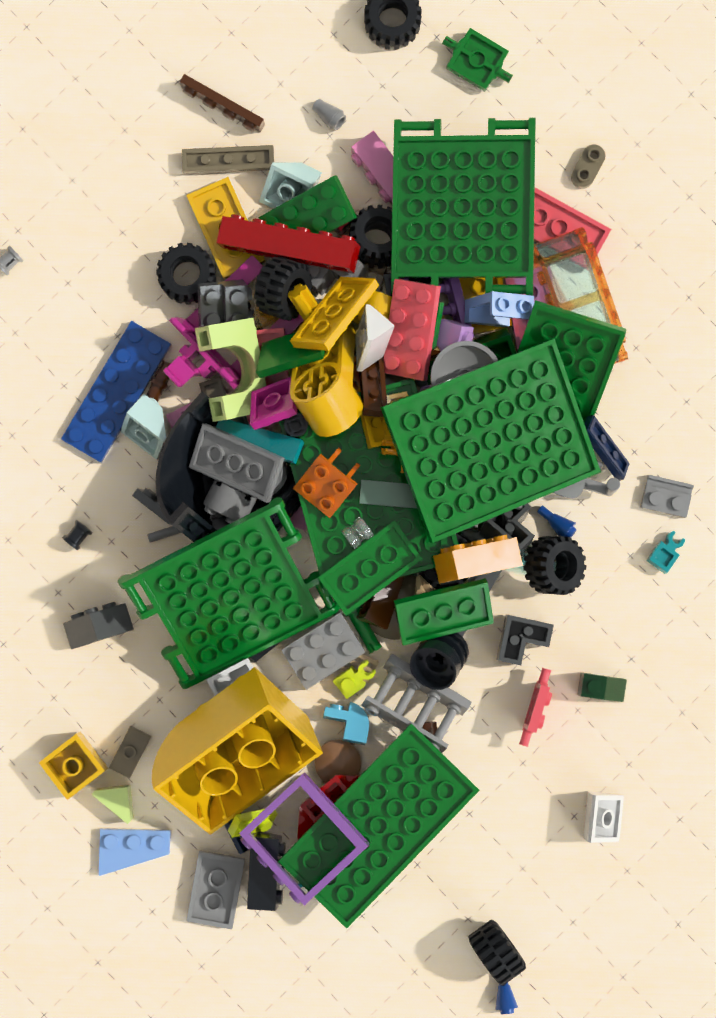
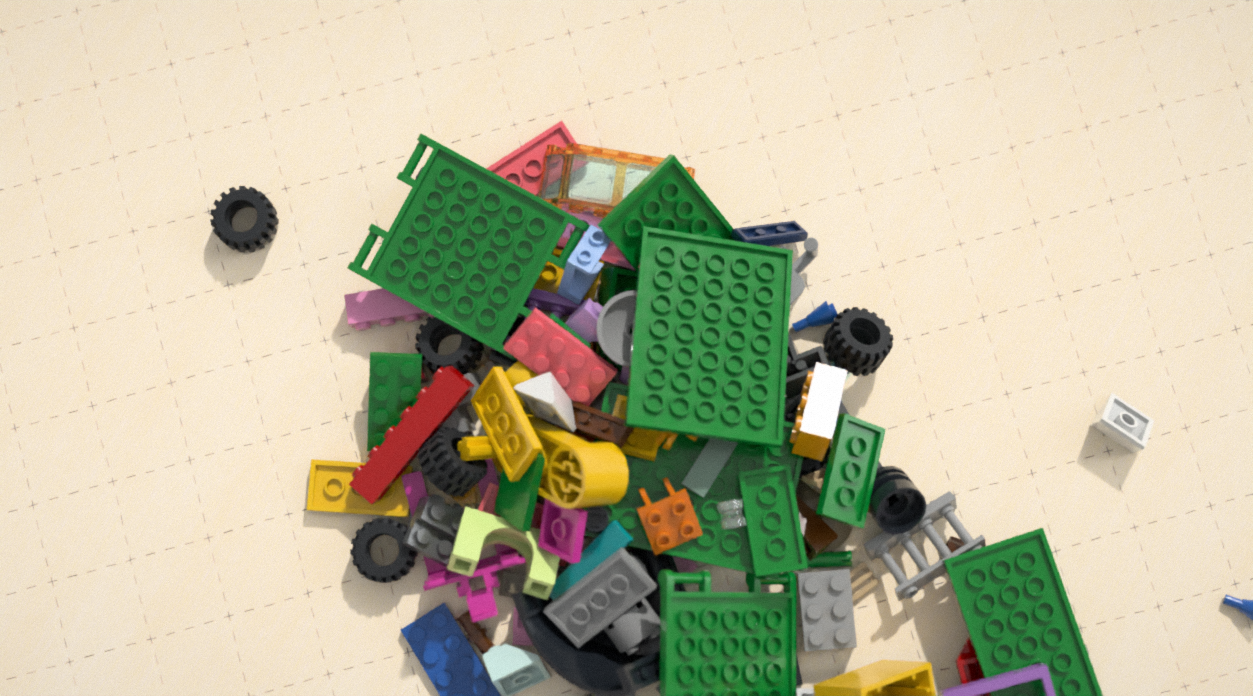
camera: 60 degrees left, 5 degrees down
(214, 99) = (228, 433): reddish brown plate -> none
(227, 159) = (293, 450): dark tan plate -> none
(287, 181) = (349, 404): light aqua slope -> none
(329, 114) = (304, 329): light grey cone -> none
(337, 758) = (941, 649): medium nougat dish -> none
(352, 680) = (870, 597): neon yellow plate -> none
(355, 720) = (911, 614): medium azure brick -> none
(477, 59) = (329, 161): green plate -> none
(497, 952) = (1207, 594): black tyre -> none
(517, 633) = (905, 410): dark grey brick -> none
(534, 717) = (980, 424): coral plate -> none
(588, 165) = (488, 110): dark tan plate -> none
(601, 687) = (996, 359): dark green slope -> none
(664, 554) = (899, 233): teal plate -> none
(667, 496) = (844, 202): light grey plate -> none

